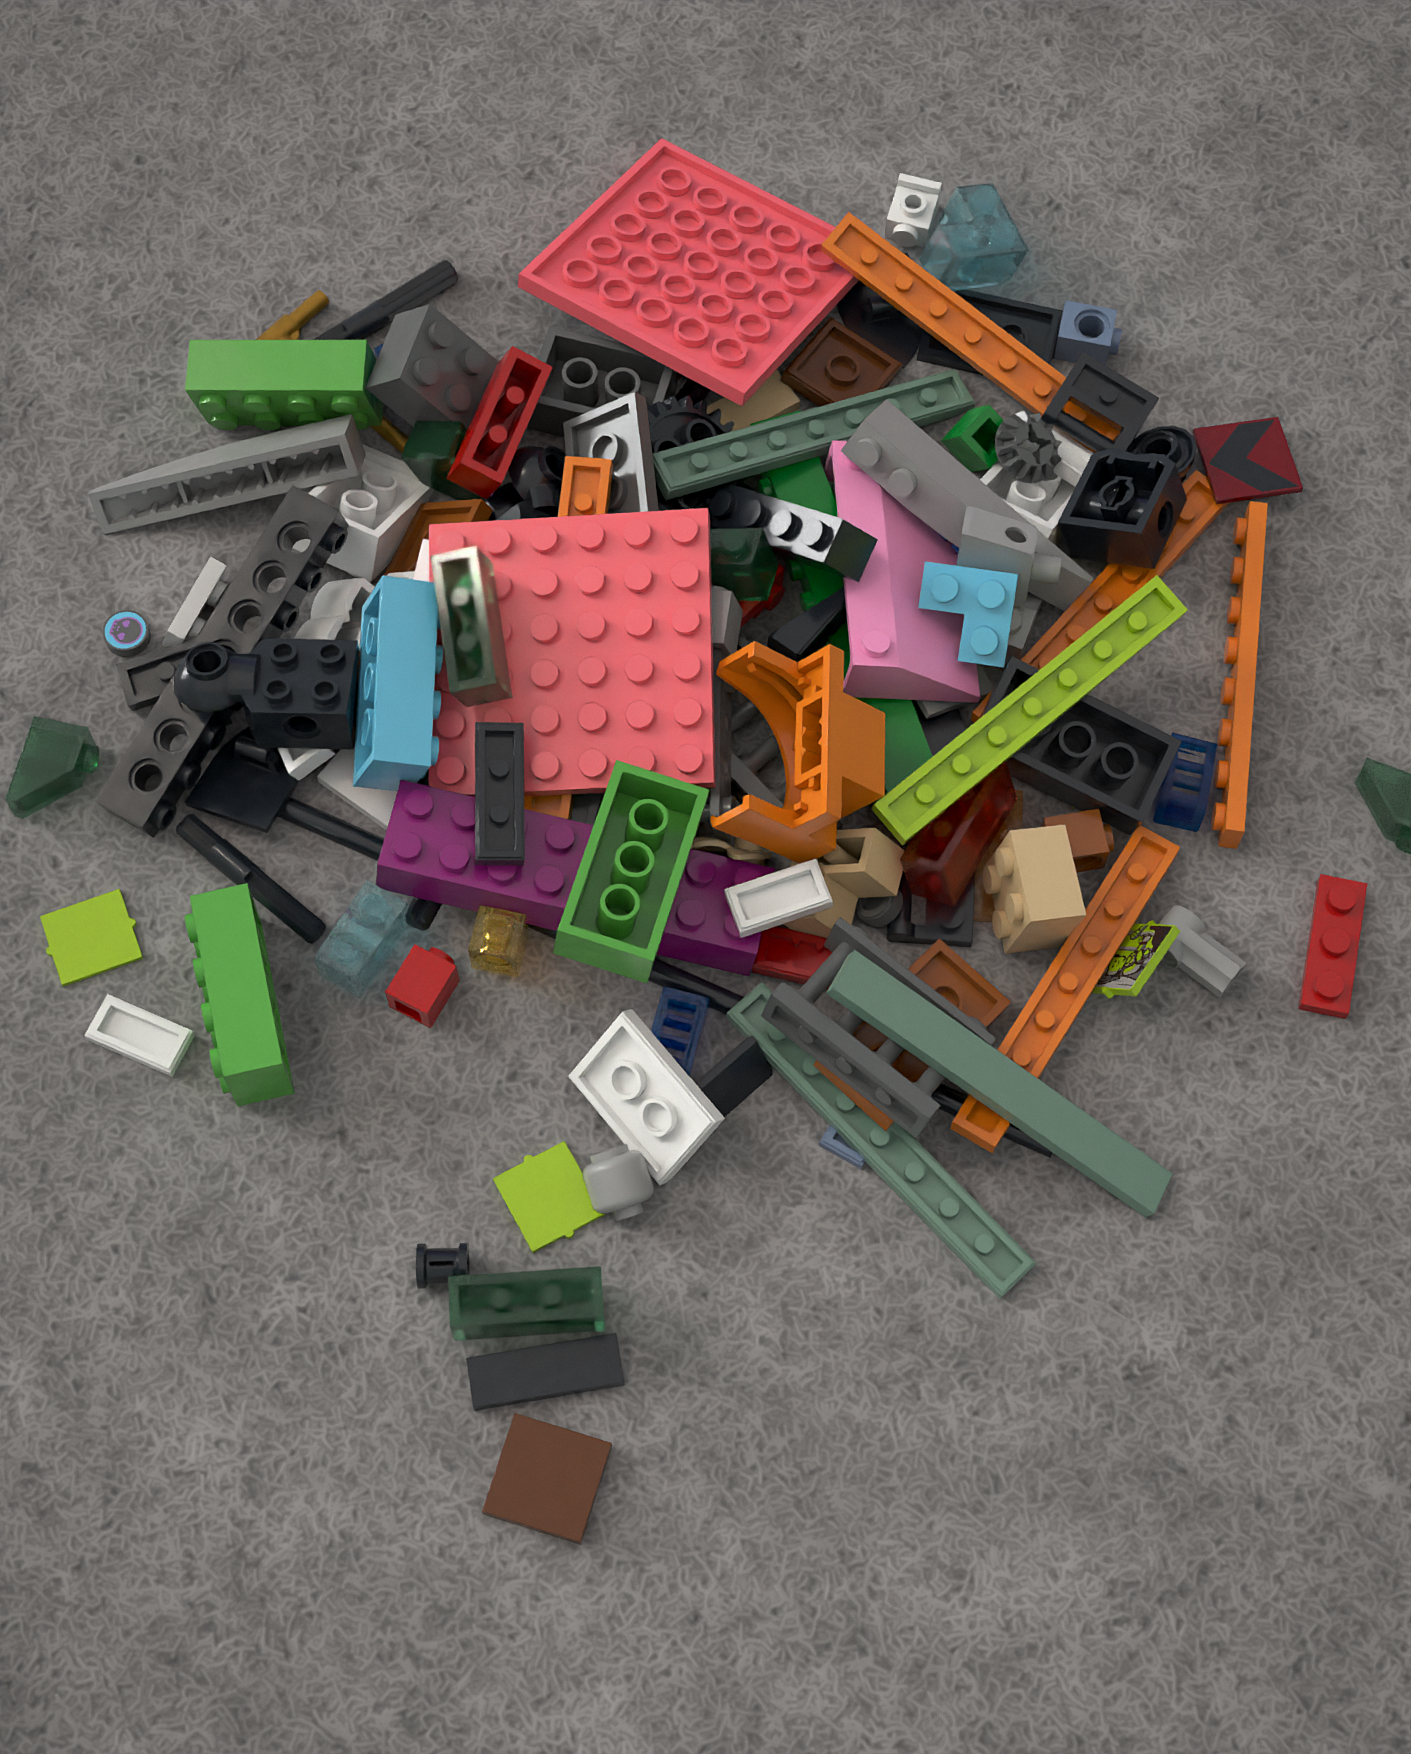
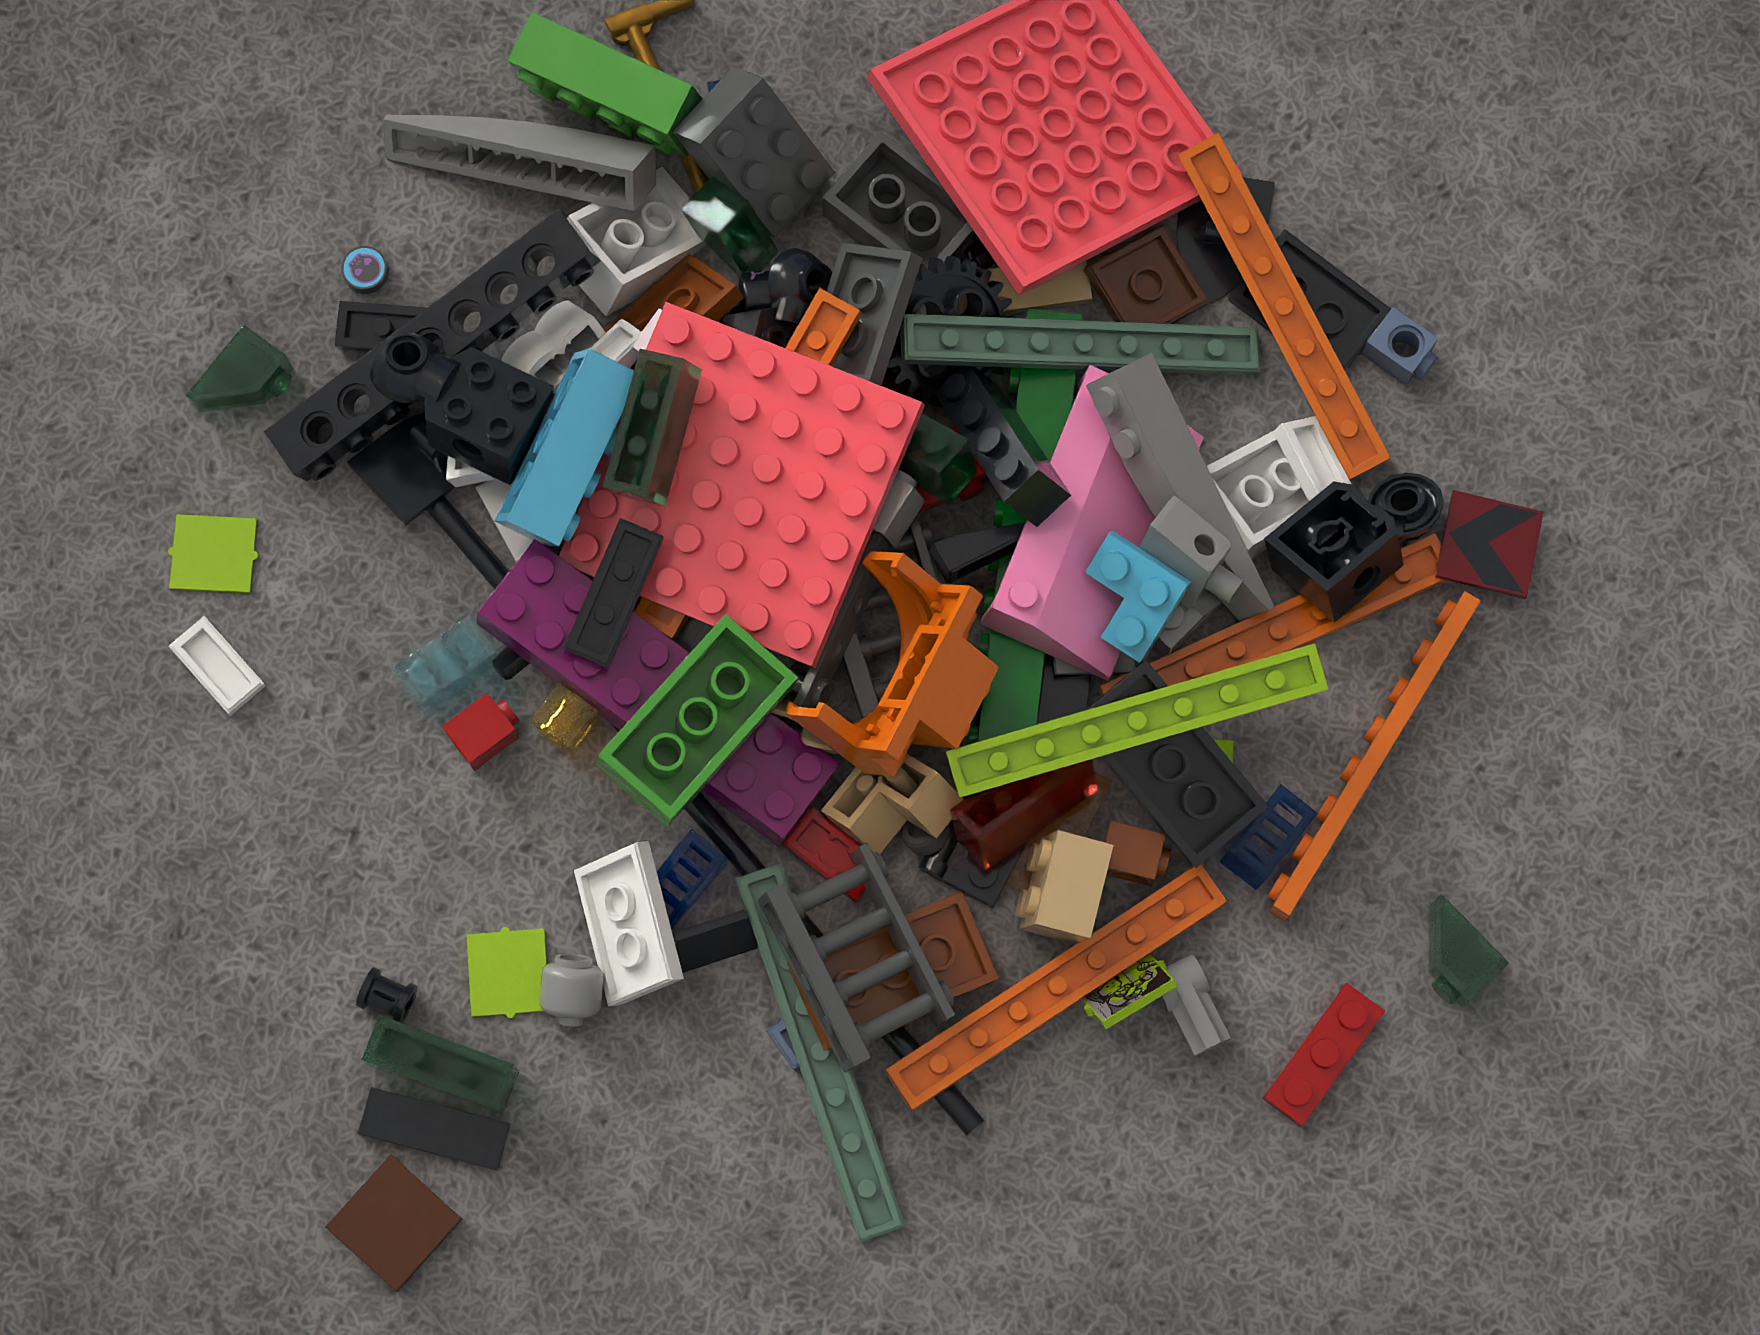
camera: 25 degrees right, 10 degrees up
(205, 591) = (452, 261): white plate -> none
(238, 995) = (313, 673): bright green brick -> none
(243, 870) = (375, 560): black axle -> none
(397, 301) = (740, 37): black axle -> none
(499, 422) = (781, 219): red brick -> none
(778, 898) = (823, 797): white tile -> none
(912, 211) = (1292, 162): white brick -> none
(974, 241) = (1341, 210): clear light blue brick -> none
(974, 438) = (1240, 415): green brick -> none
(999, 1083) = (940, 1056): sand green tile -> none
(1022, 463) = (1266, 430): dark grey gear -> none
(1105, 396) = (1379, 427): black plate -> none

